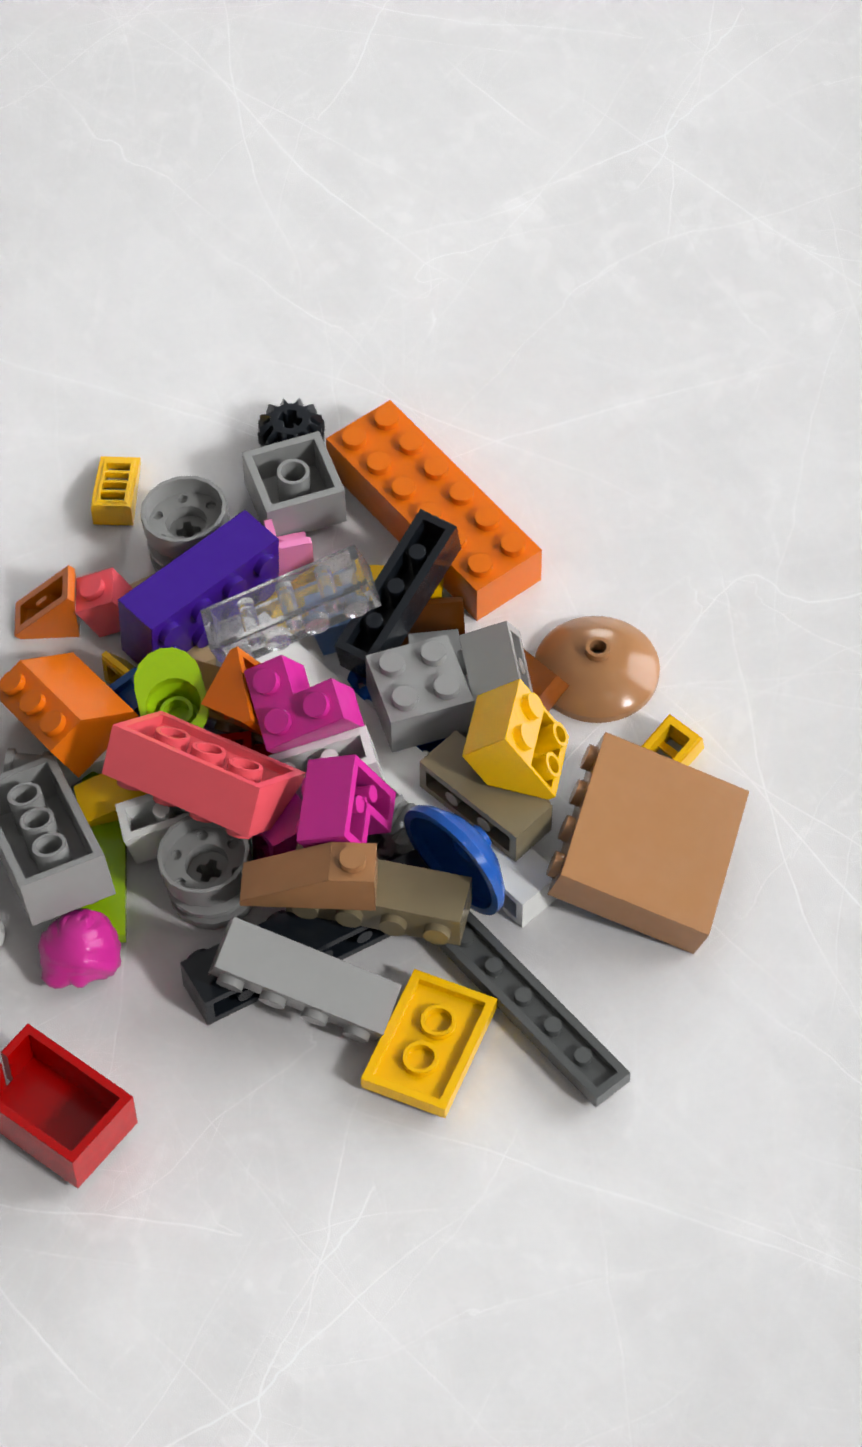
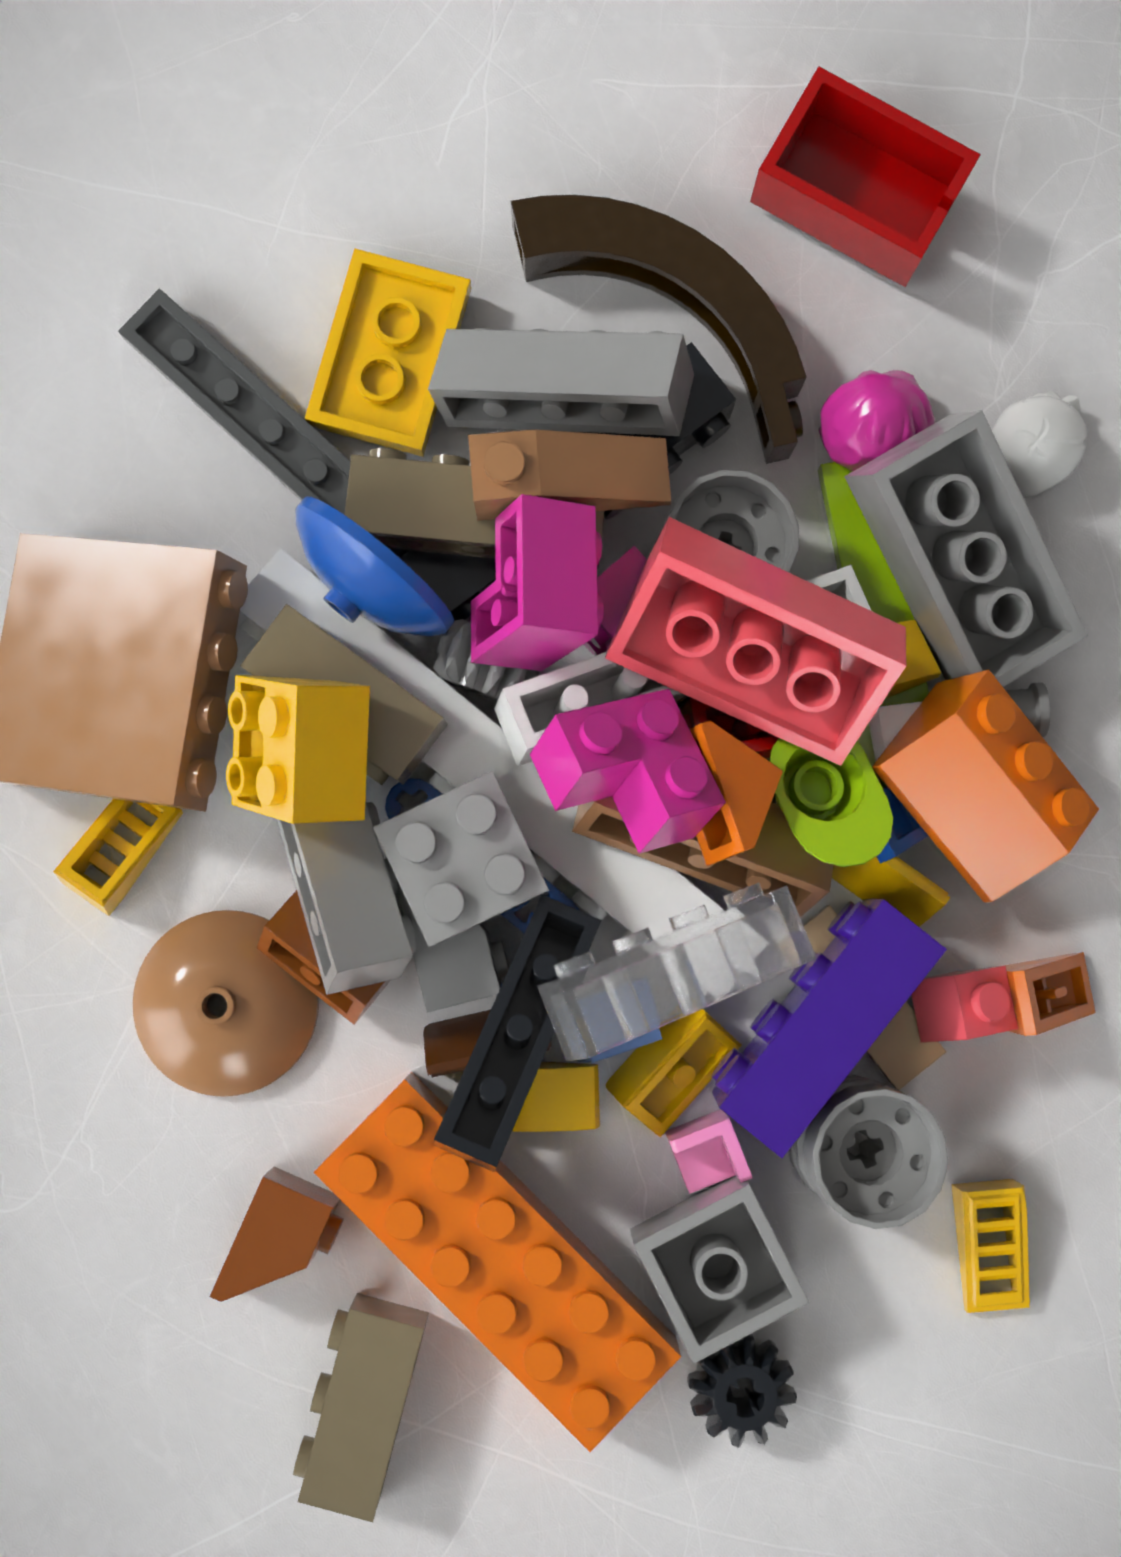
camera: 170 degrees right, 30 degrees up
(228, 1090) = (666, 256): none -> dark brown arch
(529, 447) = (360, 1406): none -> dark tan brick
(574, 534) = (279, 1233): none -> dark orange slope

